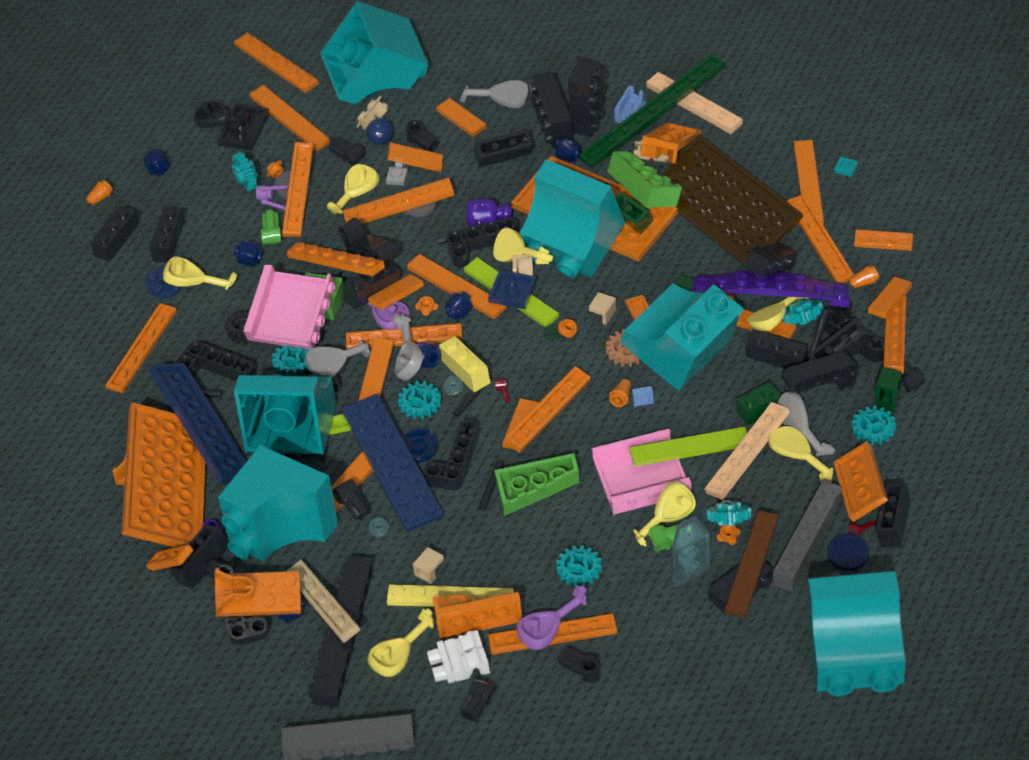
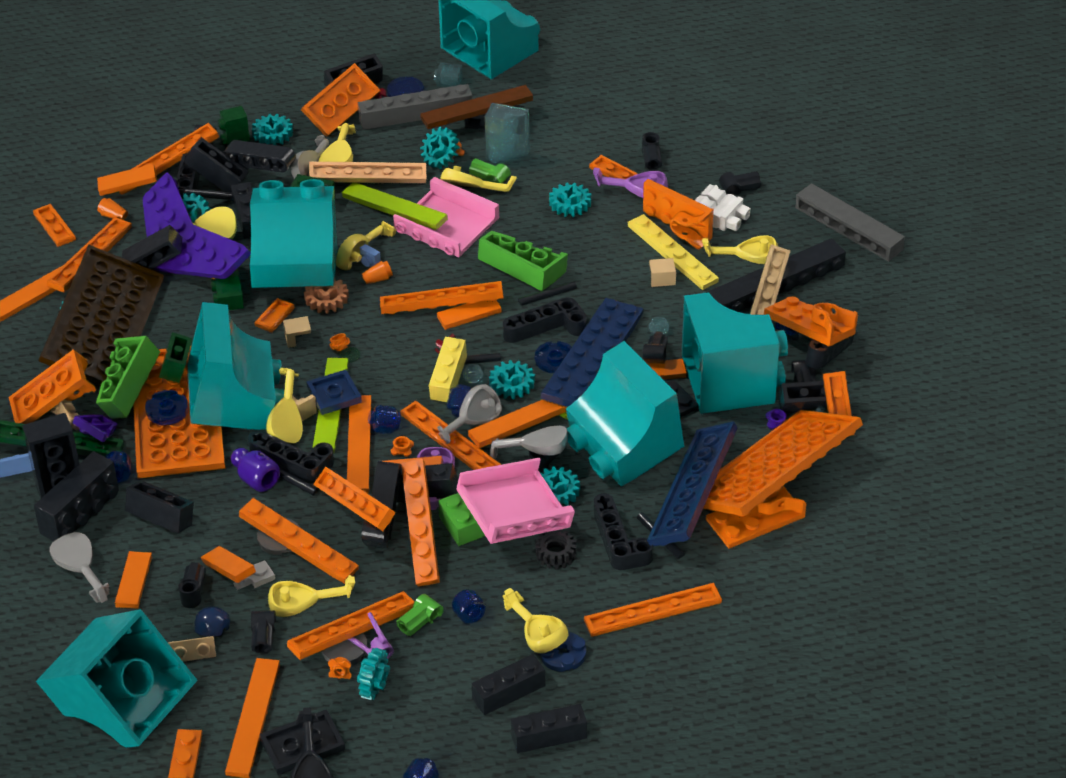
camera: 135 degrees left, 5 degrees down
(382, 230) = (354, 498): none -> orange plate
(608, 145) = (95, 425): none -> dark purple wing
(653, 380) = (350, 248): none -> light yellow piece

